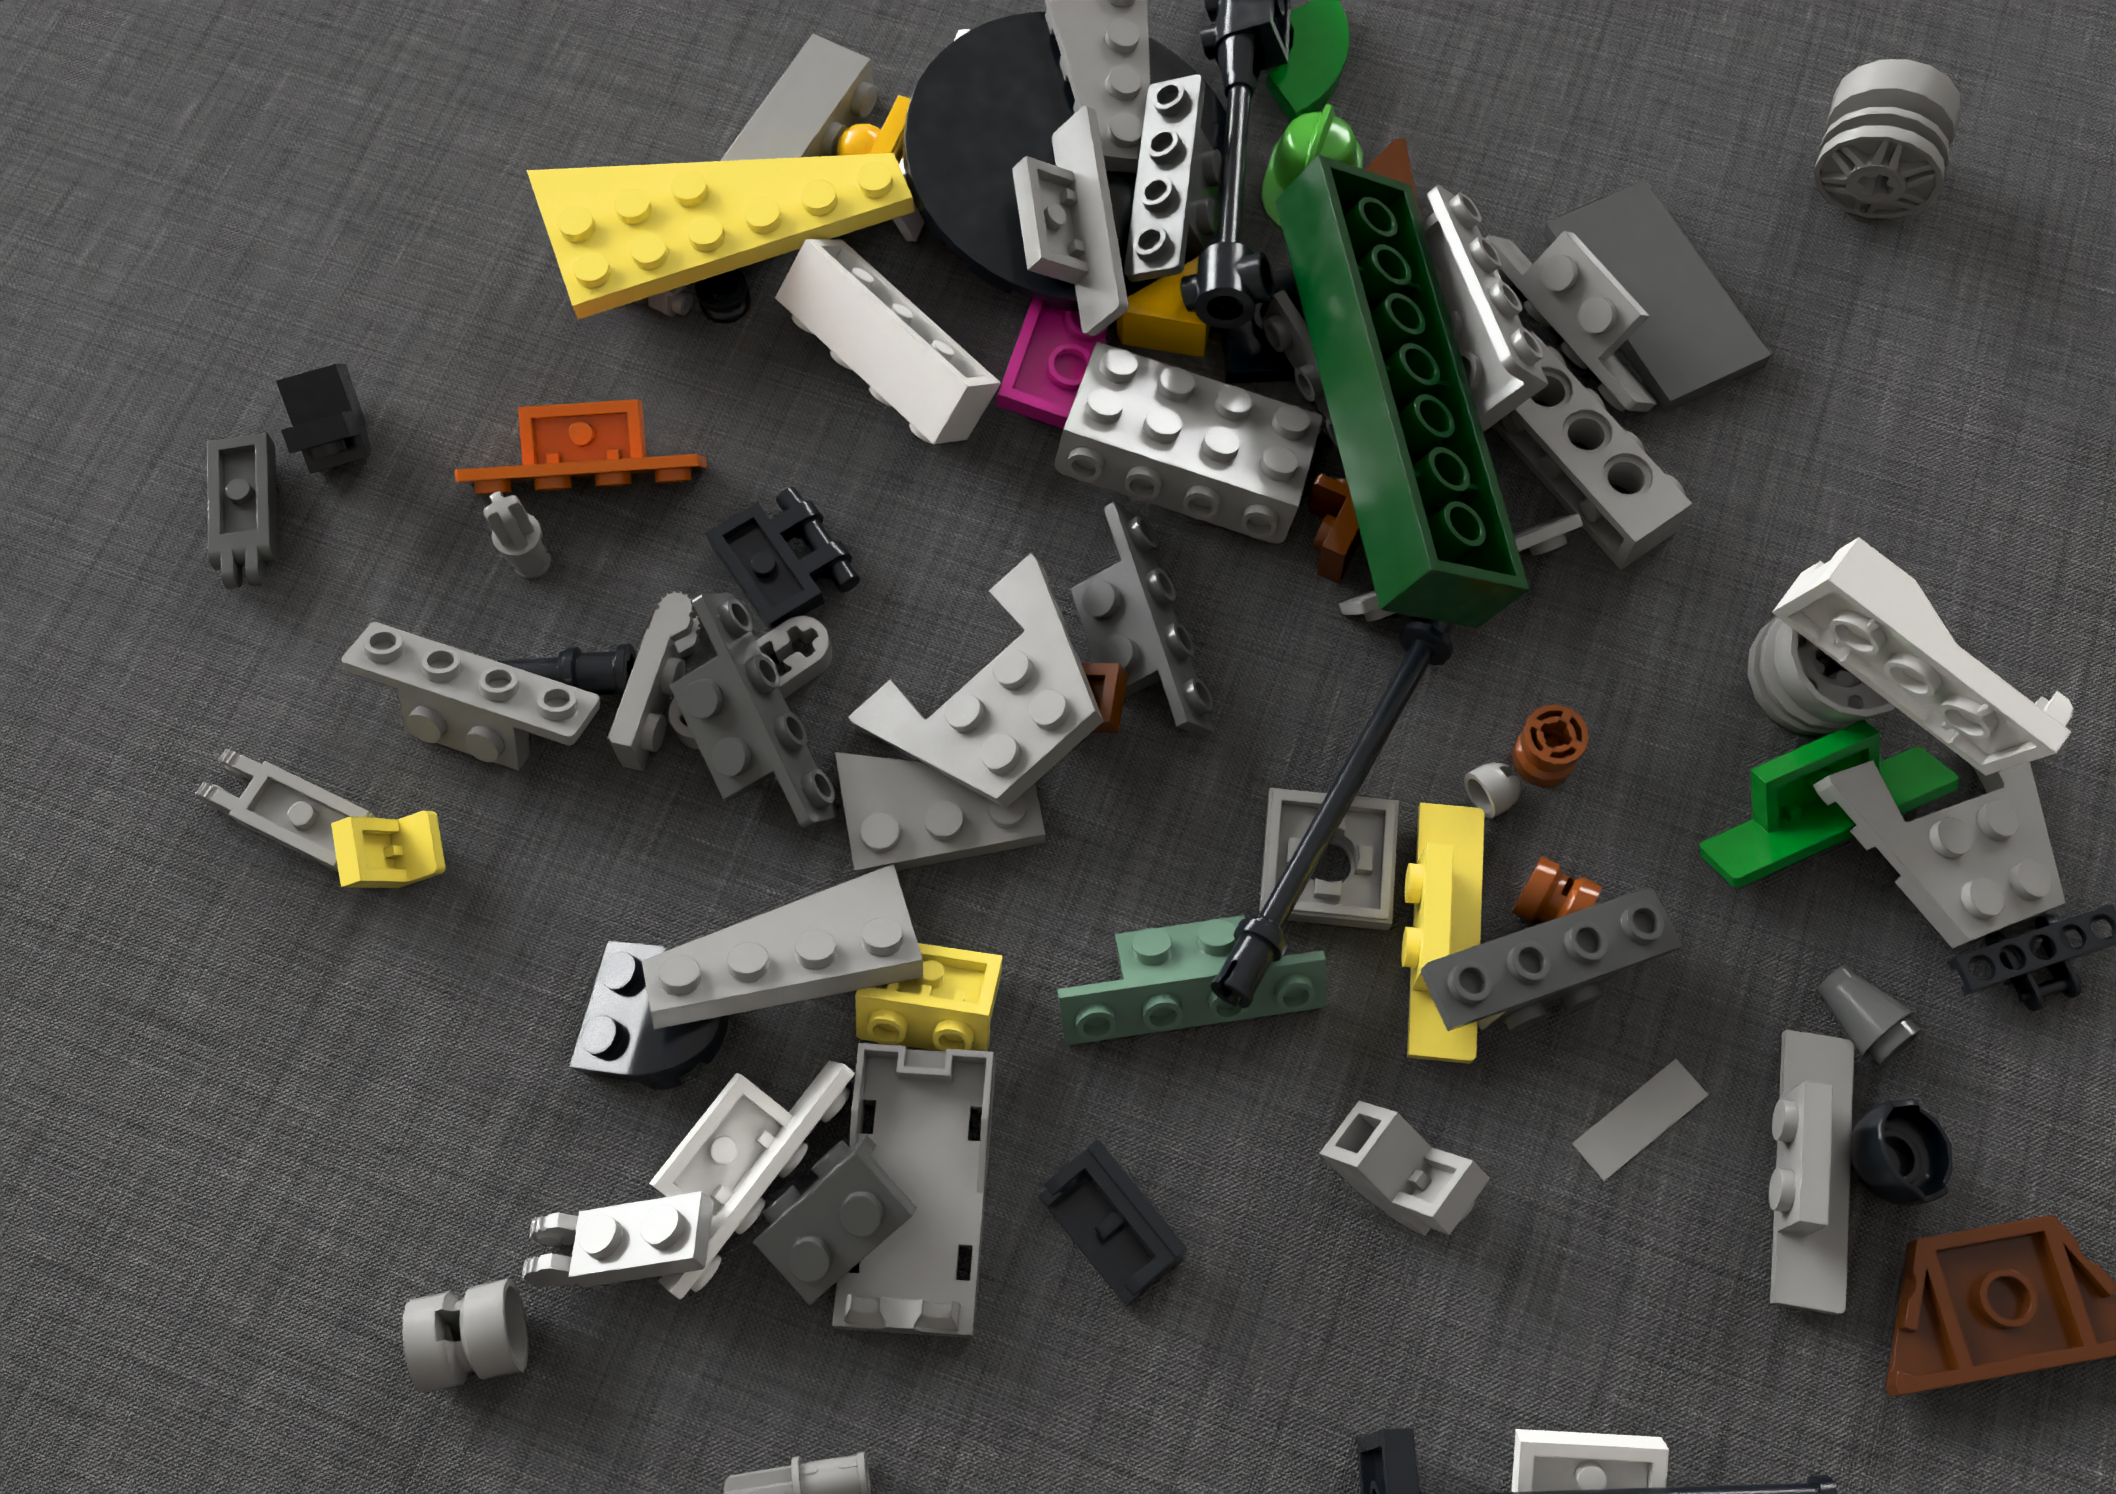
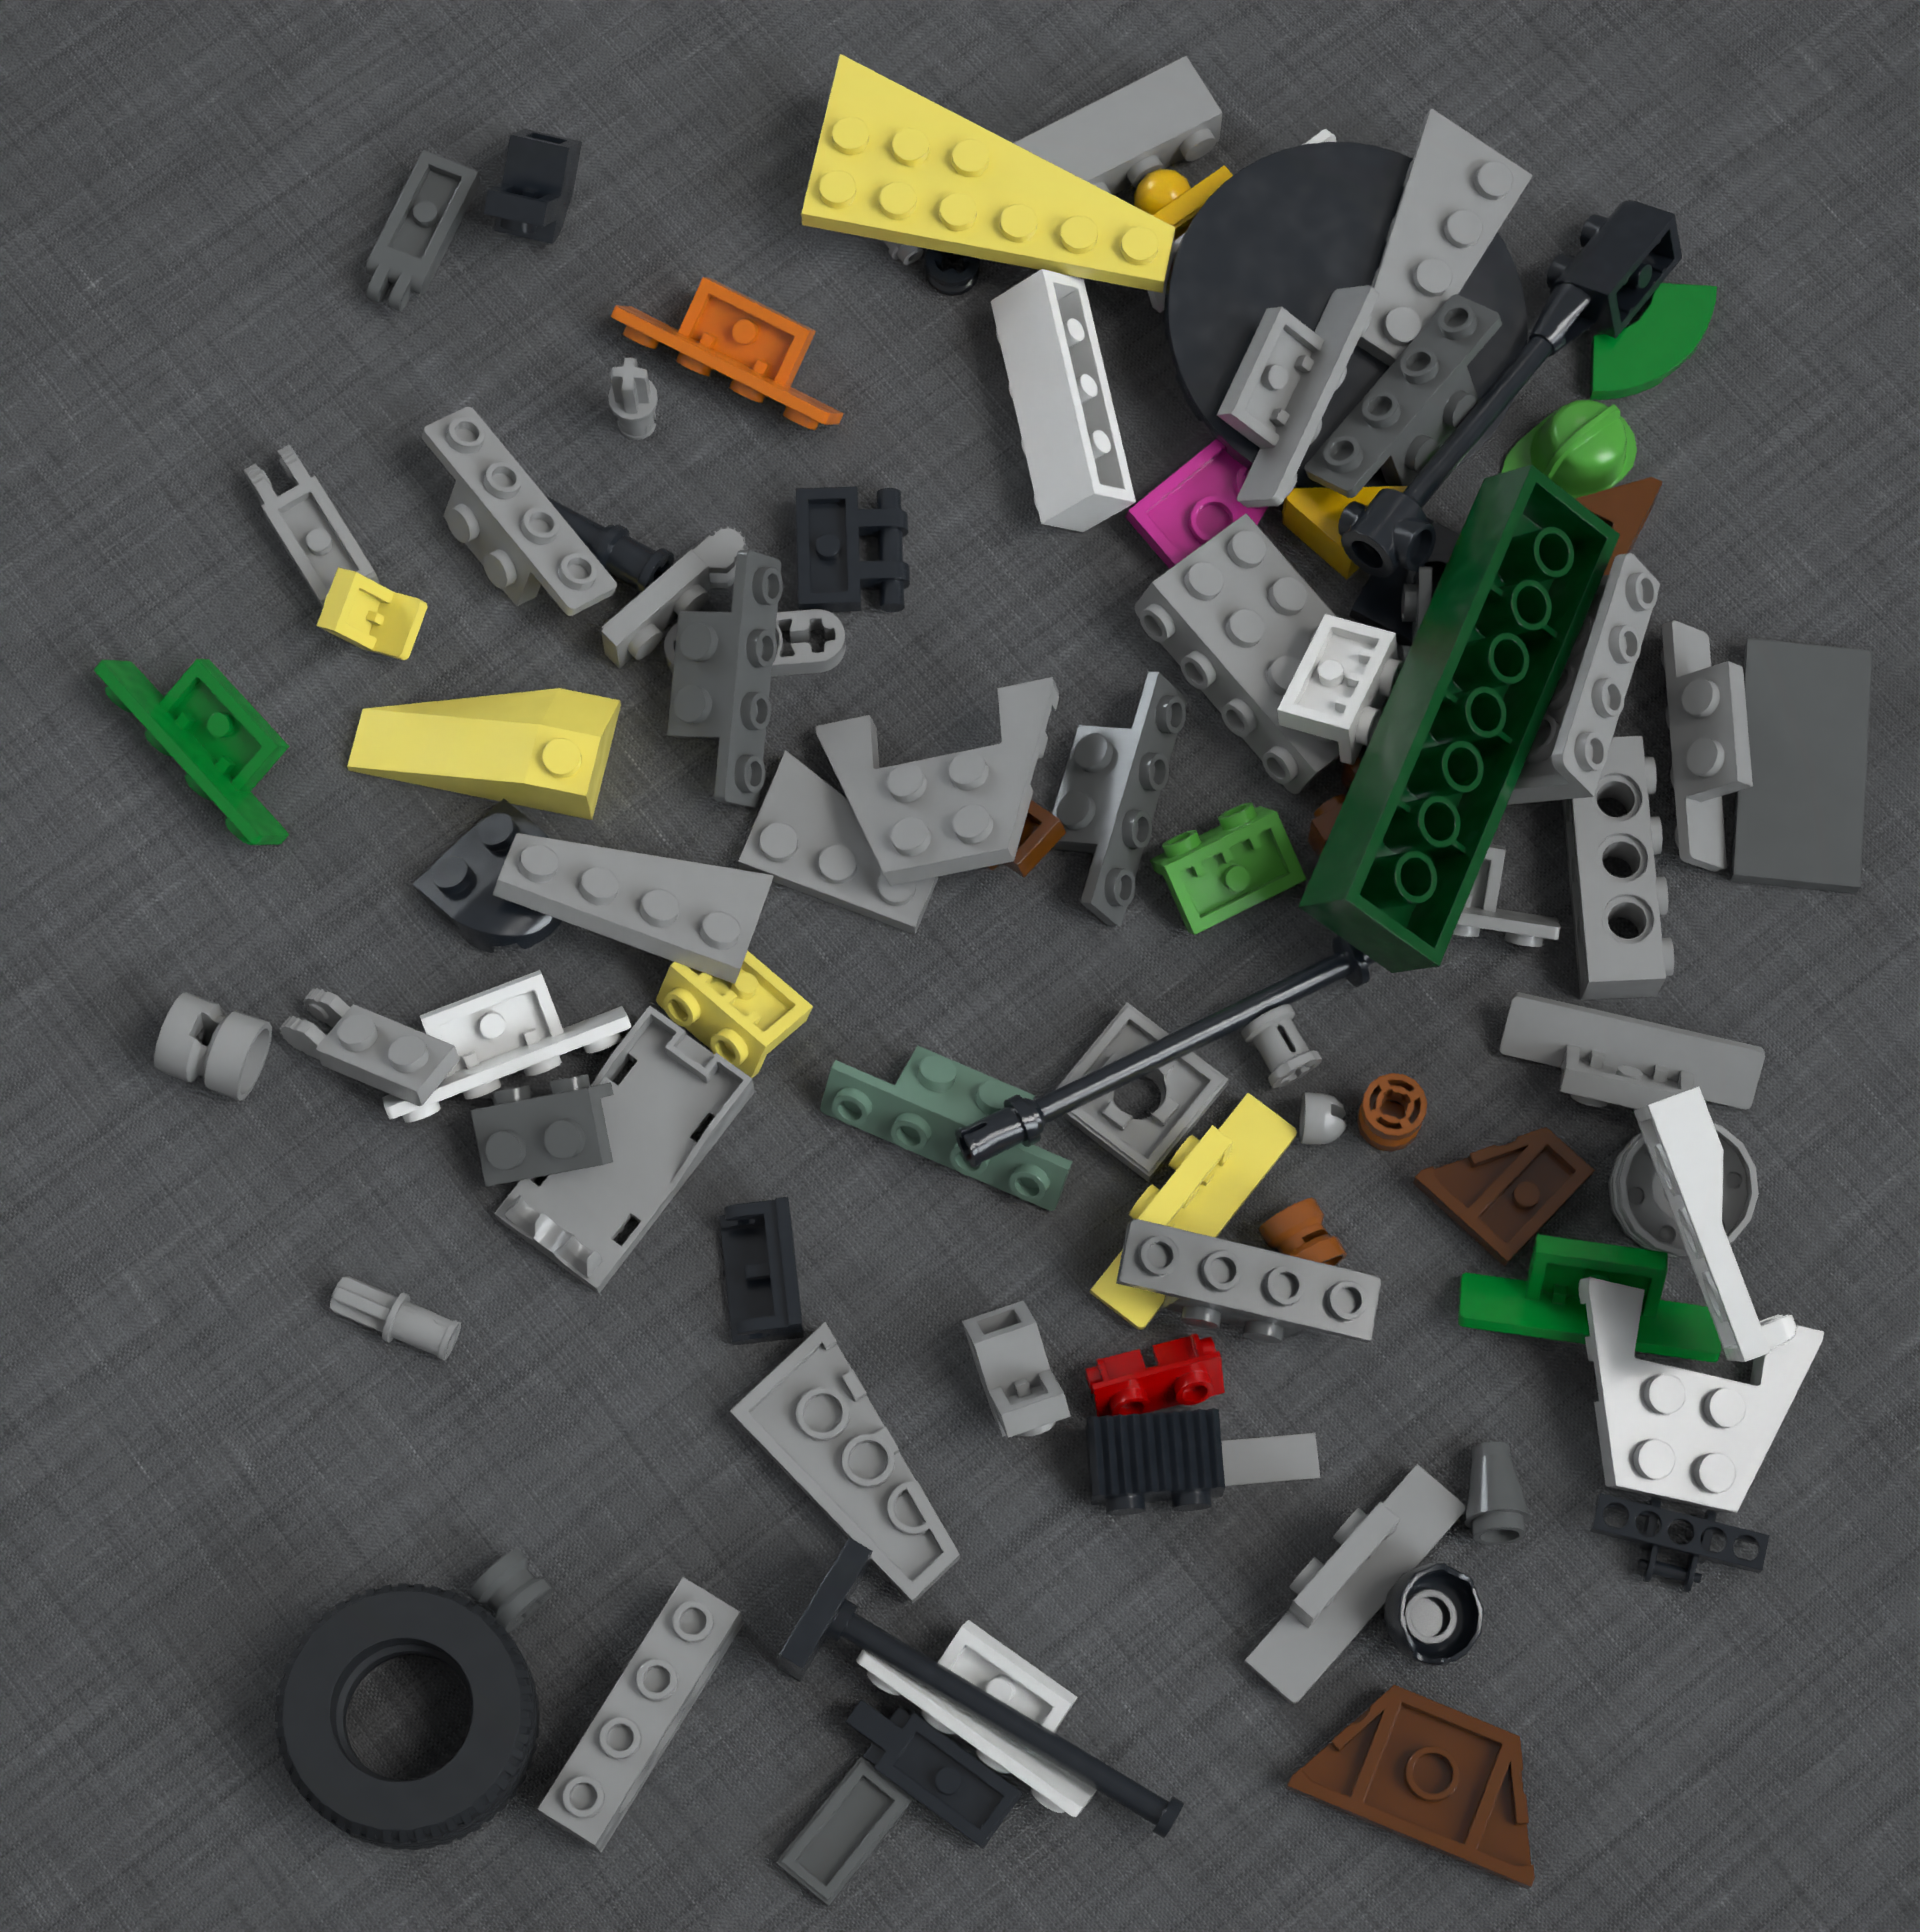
camera: 30 degrees right, 5 degrees up
(296, 1045) = (210, 735): none -> green bracket
(593, 889) = (517, 747): none -> light yellow wedge
(1272, 420) = (1342, 684): none -> white bracket
(1273, 627) = (1228, 866): none -> bright green bracket
(1298, 1349) = (837, 1450): none -> light grey wing
(1420, 747) = (1281, 1046): none -> light grey bush
(1538, 1077) = (1184, 1374): none -> red hinge
(1570, 1170) = (1155, 1460): none -> black brick
(1686, 753) = (1507, 1190): none -> reddish brown wing
(1701, 589) = (1628, 1058): none -> light grey bracket

